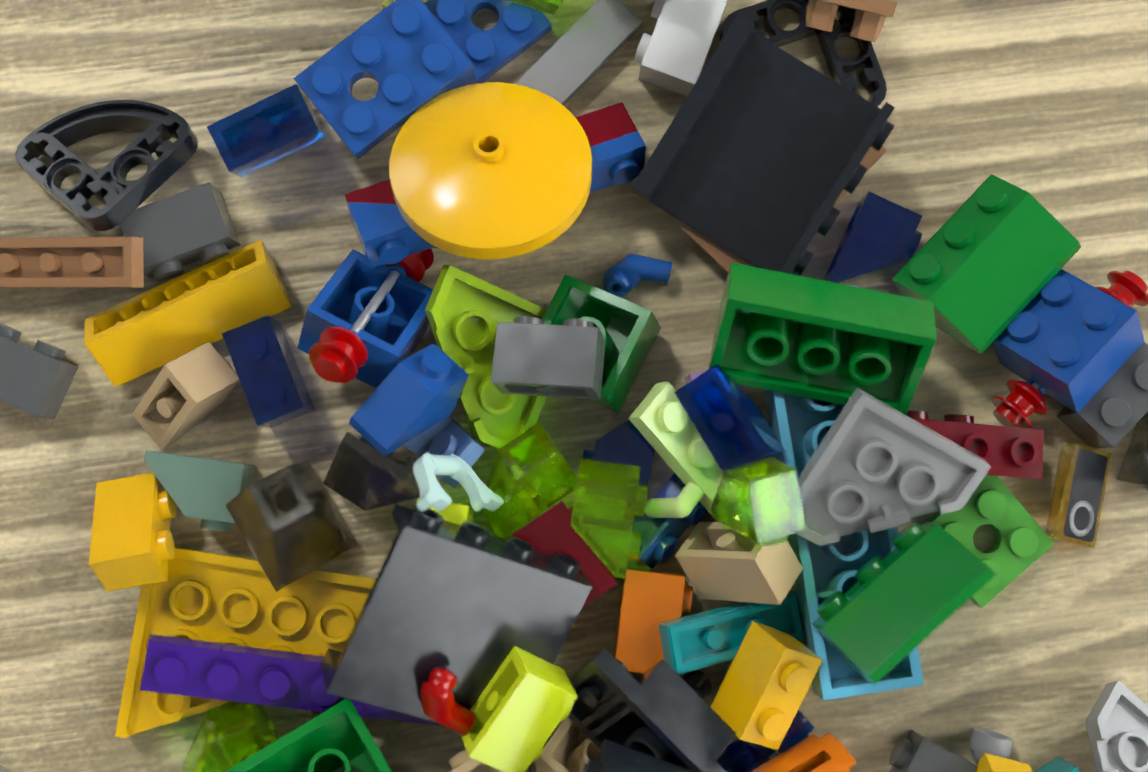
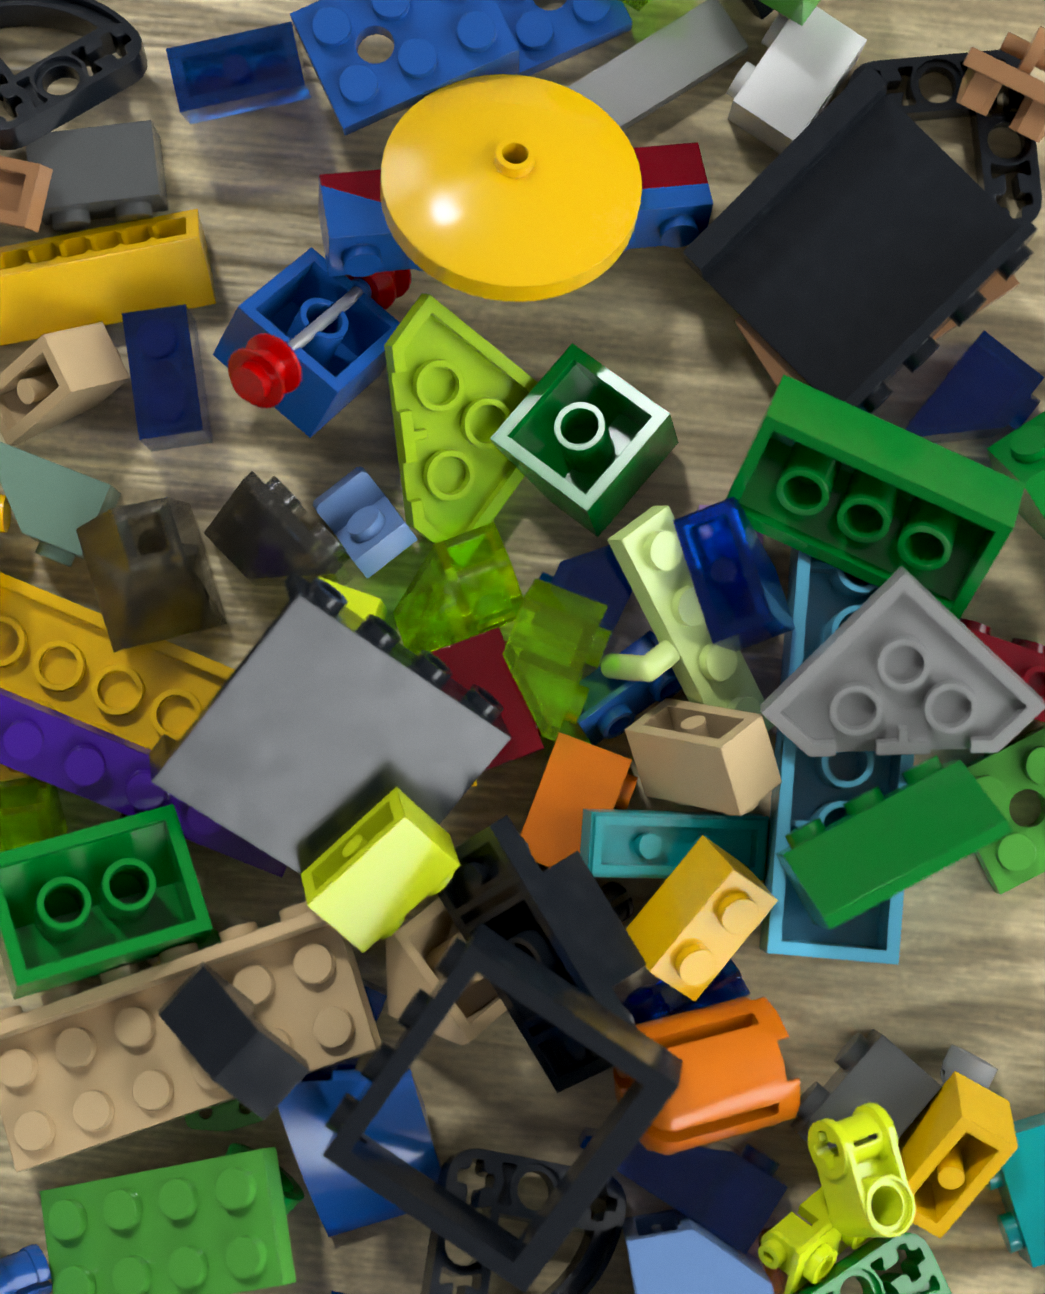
camera: 15 degrees right, 0 degrees up
(410, 399) = (340, 451): blue slope -> none
(440, 703) = (286, 833): red arm -> none
(451, 465) = (340, 571): light aqua helmet -> none
(548, 358) = (525, 441): dark grey brick -> none
(632, 271) = (660, 361): blue arm -> none
(760, 501) = (745, 677): clear neon green slope -> none

